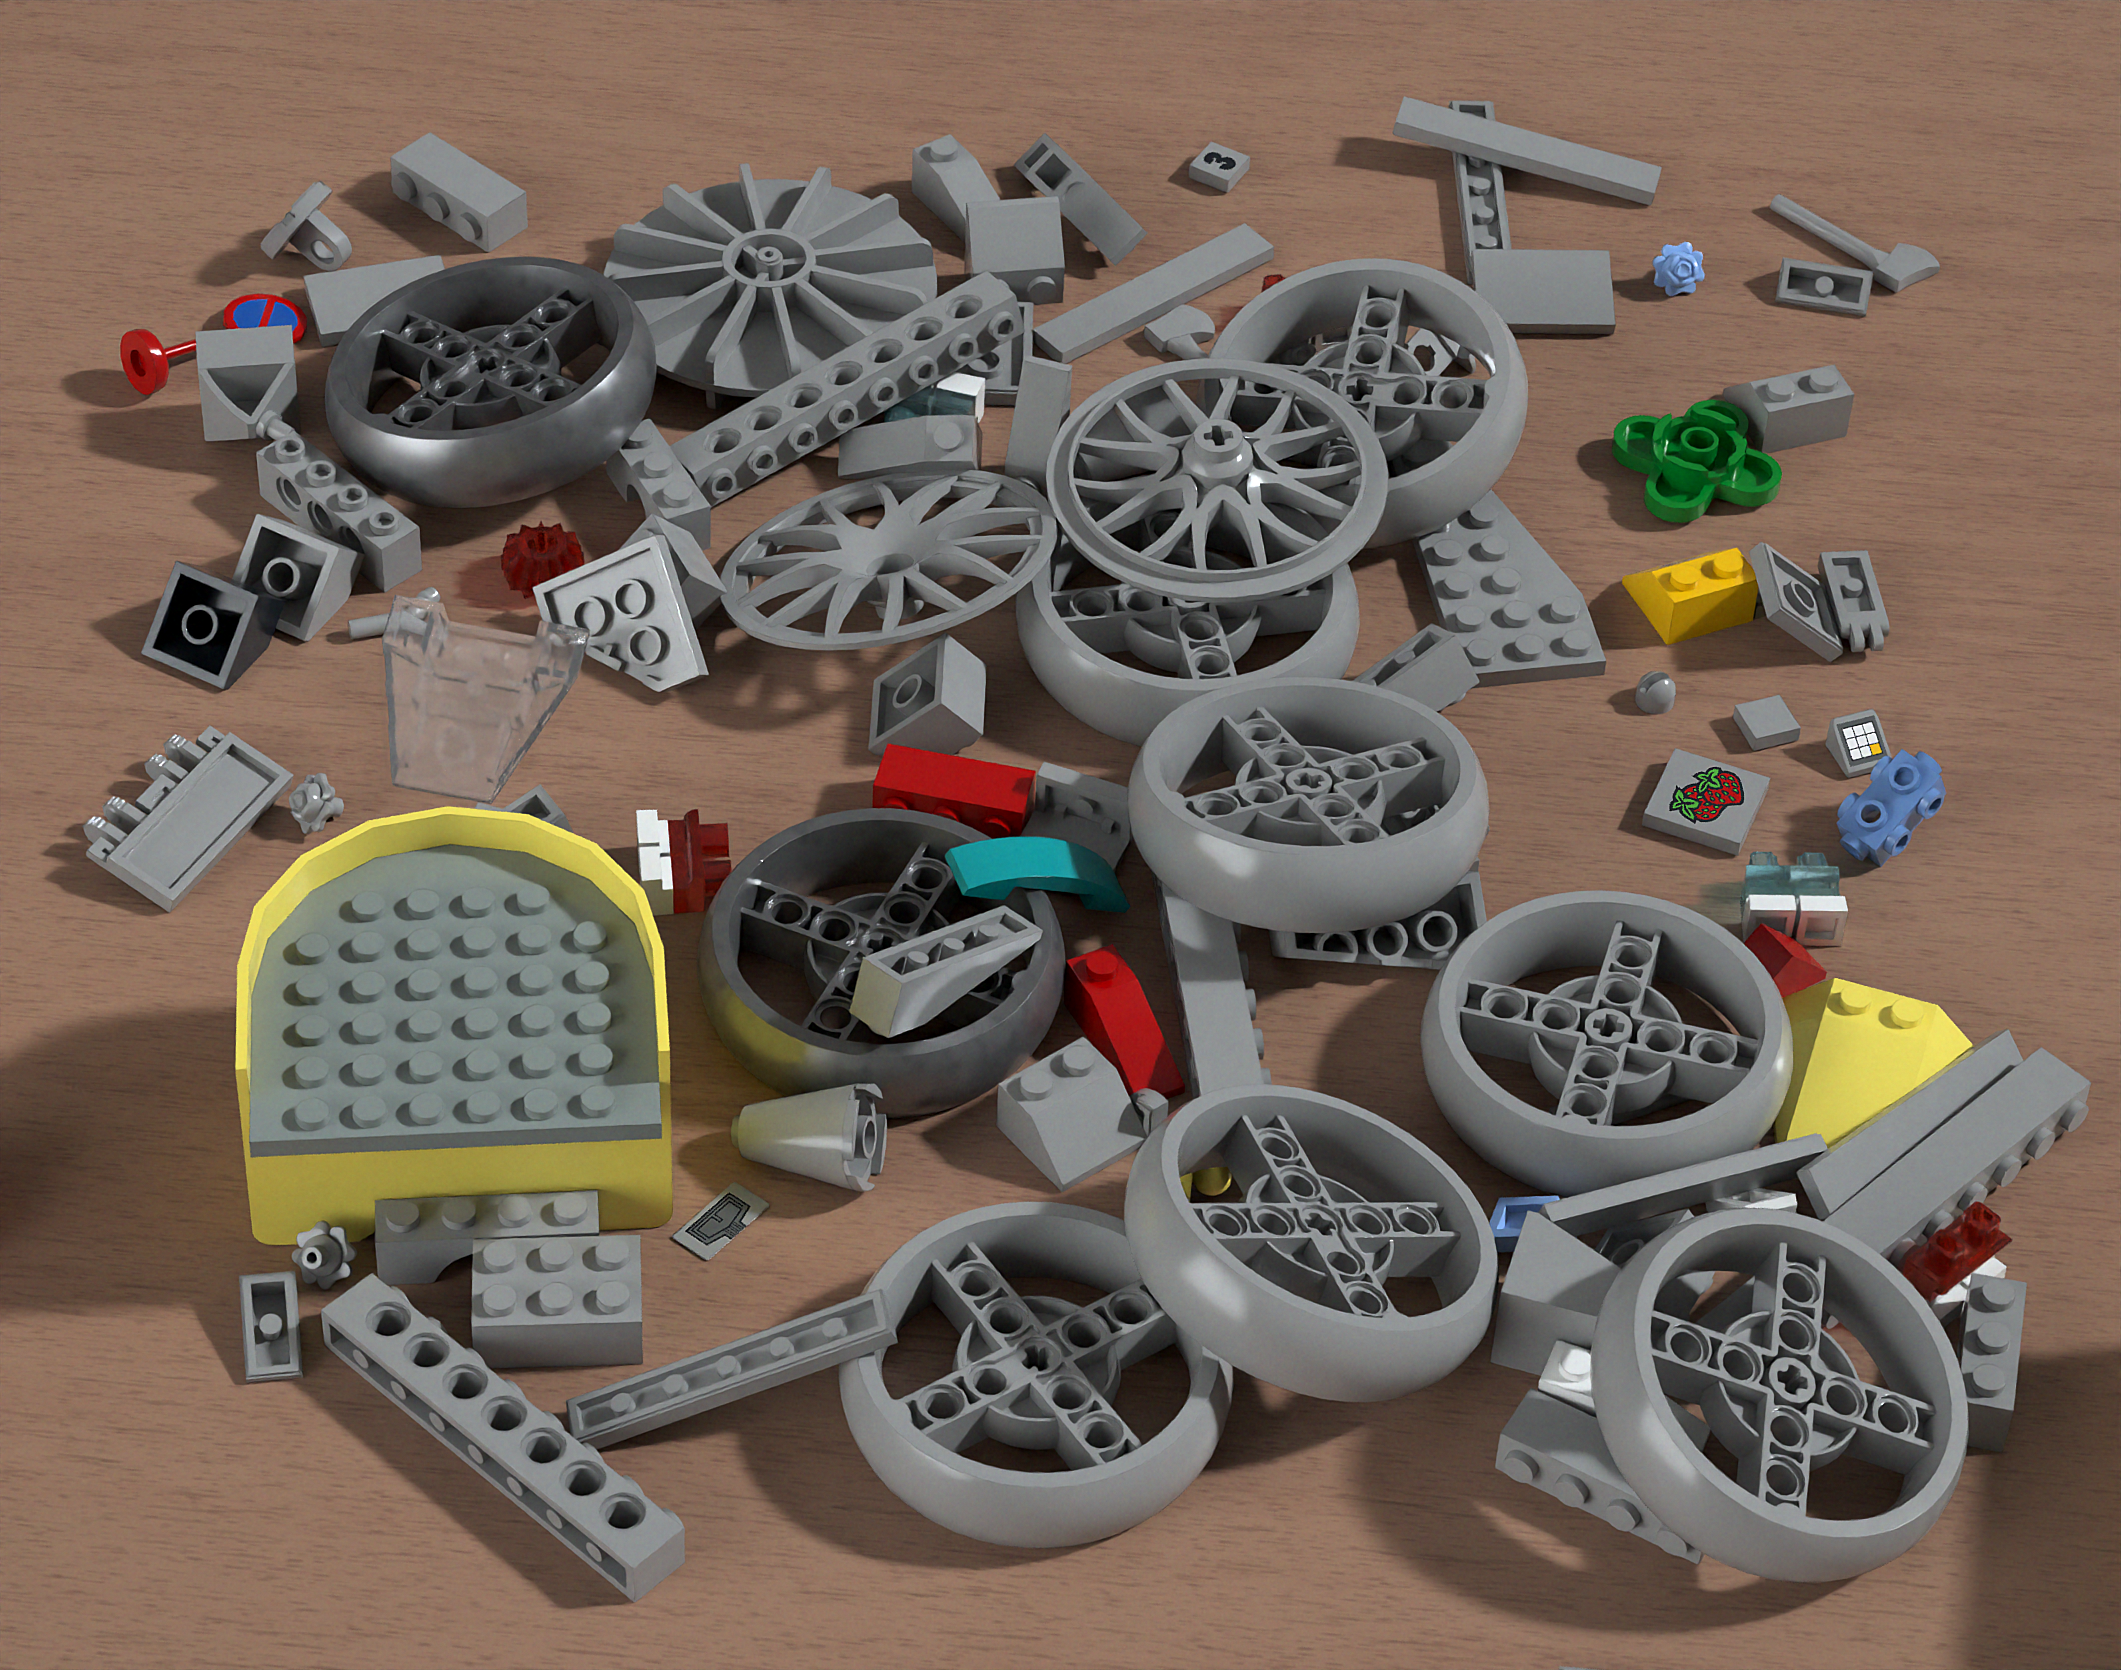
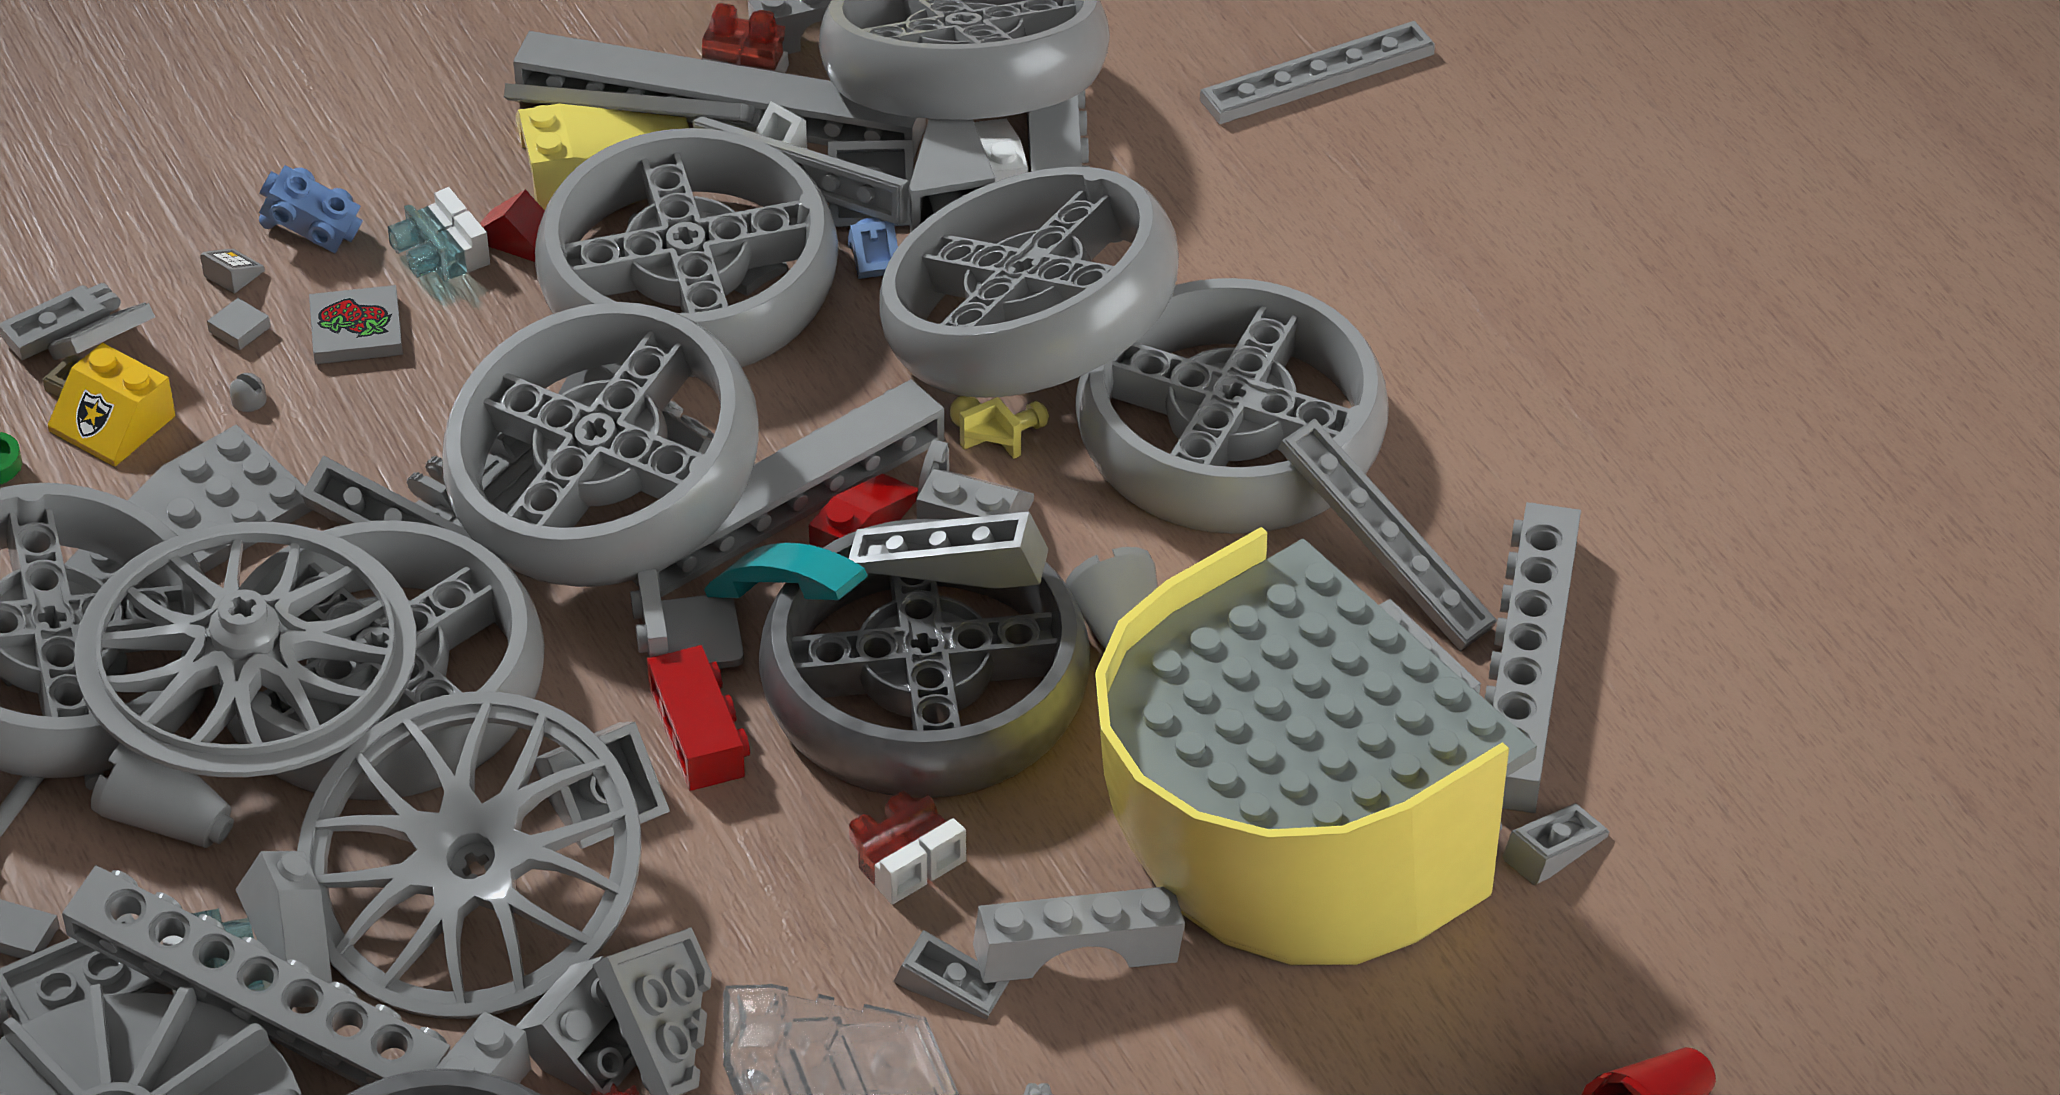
camera: 120 degrees left, 0 degrees up
(1038, 416) = (232, 826): light grey slope -> none

